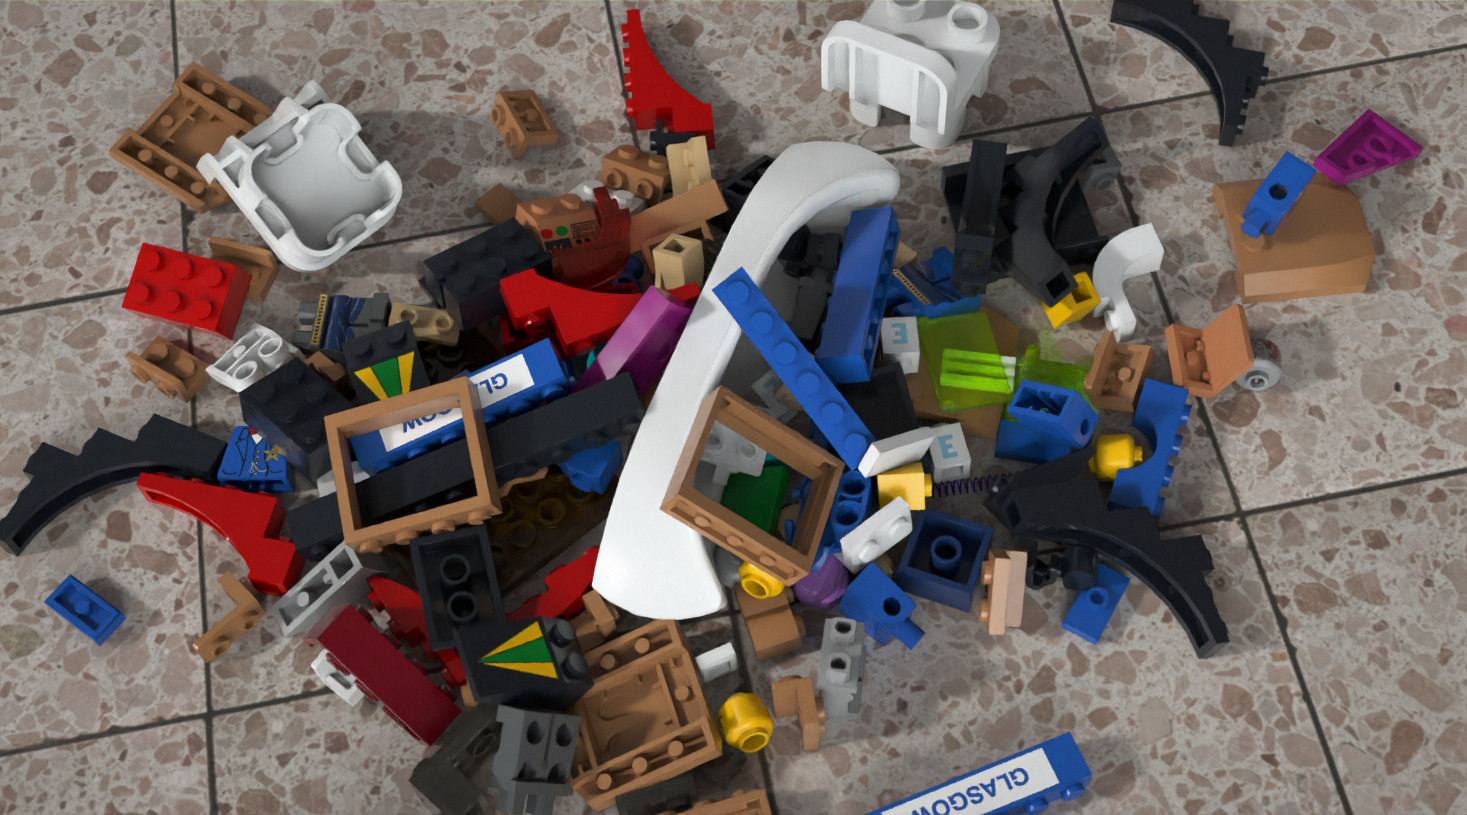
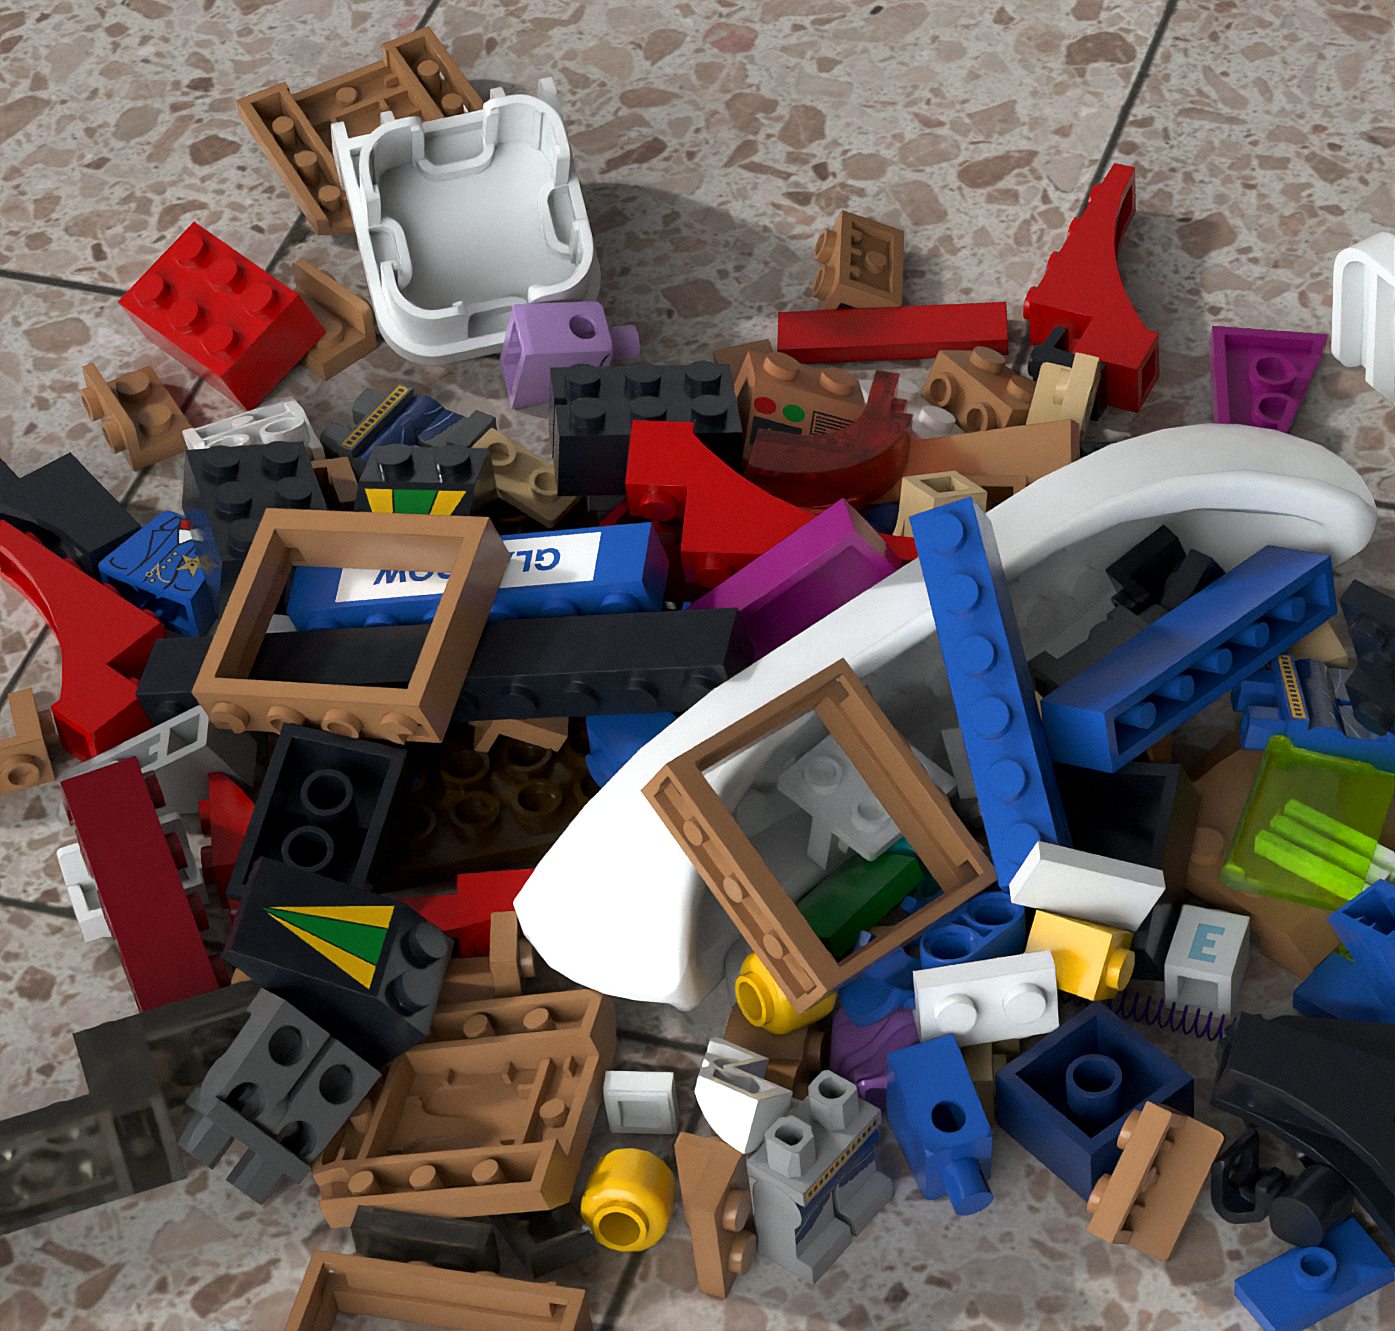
camera: 30 degrees right, 15 degrees down
(397, 237) = (558, 336): none -> lavender torso
(562, 152) = (891, 332): none -> red tile
(771, 111) = (1262, 375): none -> magenta wing
(791, 649) = (737, 1096): none -> white slope
(900, 343) = (1222, 762): white brick -> none

